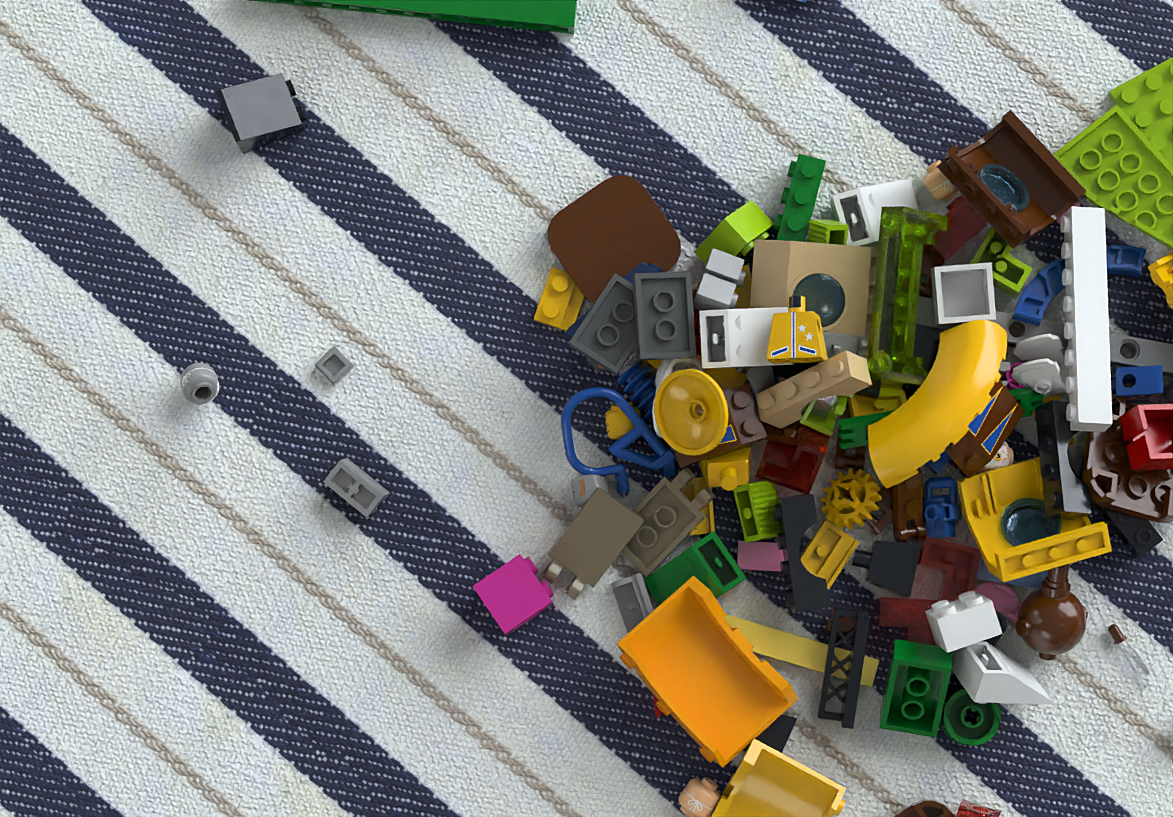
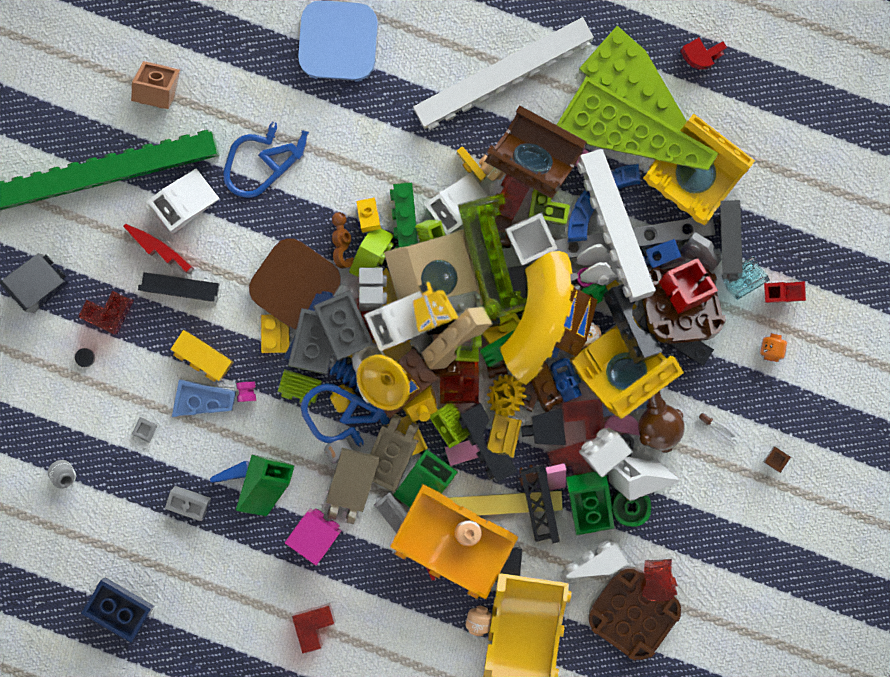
camera: 20 degrees left, 5 degrees up
(206, 597) = (118, 609): none -> dark blue brick
(289, 238) = (84, 357): none -> black tile
(345, 194) = (108, 317): none -> clear red brick
(428, 351) = (199, 398): none -> medium blue wing
(437, 468) = (234, 472): none -> blue slope
(441, 119) = (153, 245): none -> red slope
(450, 293) = (201, 356): none -> yellow brick
(454, 190) = (179, 287): none -> black fence
(459, 714) = (307, 625): none -> clear red brick
(471, 499) = (264, 484): none -> green slope
(493, 364) = (246, 391): none -> dark pink wheel
(503, 74) = (183, 200): none -> white slope
(565, 380) = (297, 385): none -> lime brick
(682, 64) = (298, 153): none -> blue piece
(700, 205) = (341, 239): none -> dark orange piece
(730, 667) = (468, 533): none -> light nougat head
(749, 184) = (368, 215): none -> yellow plate
(881, 636) = (556, 476): none -> bright pink tile
(907, 777) = (600, 562): none -> white slope
(913, 167) = (470, 165): none -> yellow plate
(1002, 61) = (503, 73): none -> white brick

